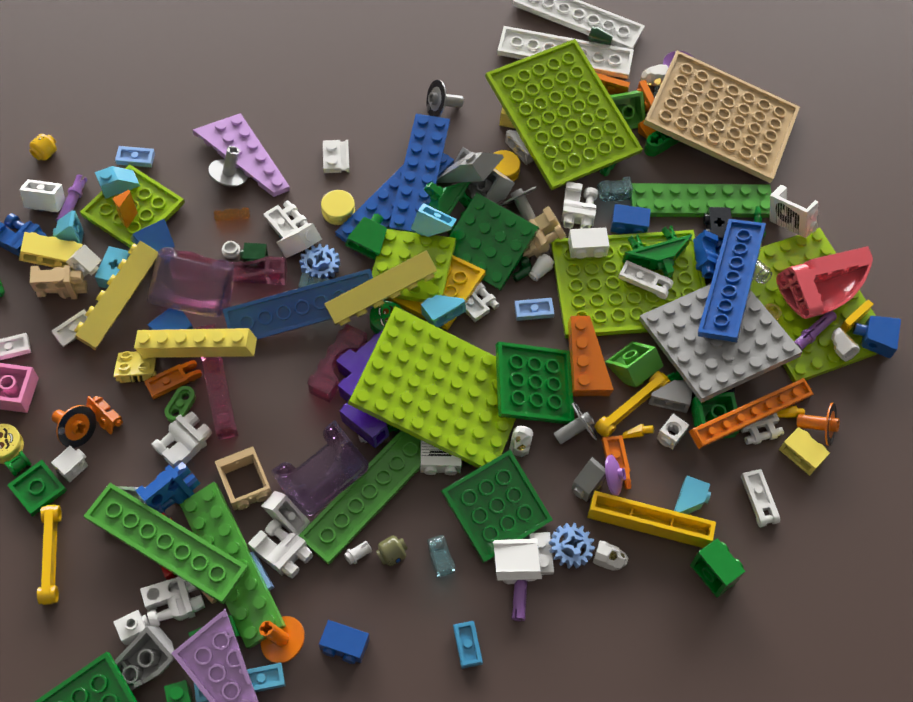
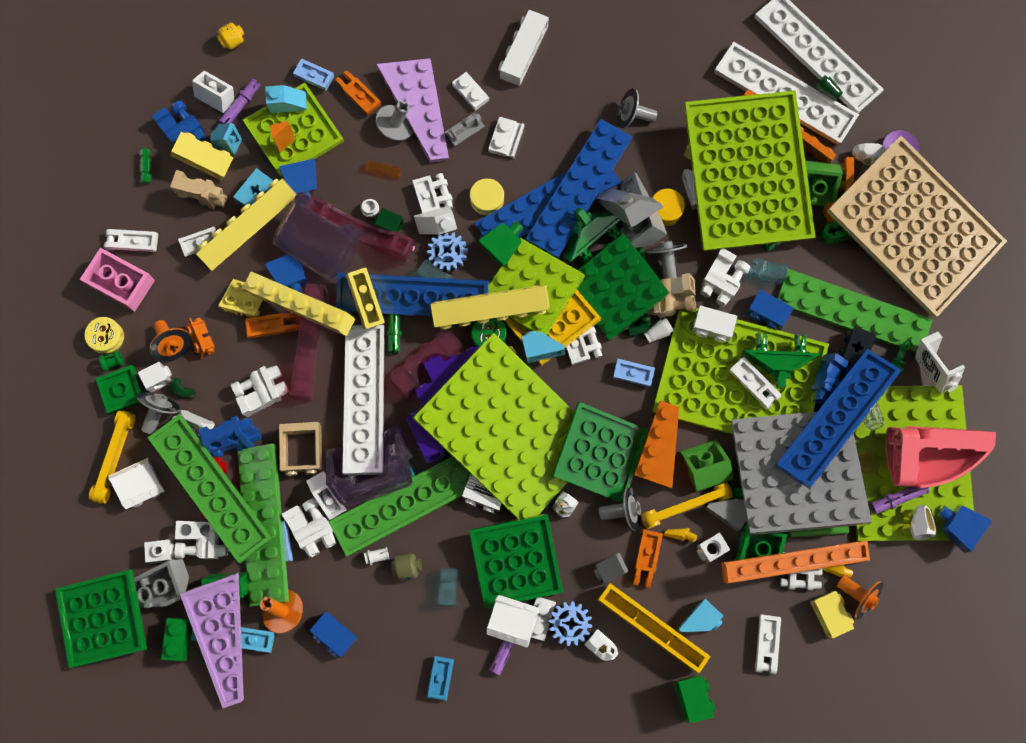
camera: 25 degrees right, 15 degrees up
(81, 494) = (157, 405): none -> light grey piece
(84, 260) = (228, 178): white brick -> none
(84, 571) = (136, 484): none -> white slope
(98, 468) = (179, 390): none -> dark green arm
(179, 405) = (268, 351): bright green plate -> none
(183, 159) = (359, 93): none -> orange hinge
(258, 319) = (364, 298): none -> light yellow brick
(287, 129) = (470, 91): none -> white plate
(291, 414) = (364, 401): none -> white plate
(295, 159) = (465, 129): none -> light grey hinge
(296, 348) = (394, 333): none -> green pin
(322, 82) = (523, 48): none -> white brick
(432, 221) = (566, 252): medium azure slope -> none
(614, 475) = (634, 575): medium lavender dish -> none
(759, 386) = (817, 532): none -> bright green bar
(856, 316) = (949, 499): yellow tile -> none

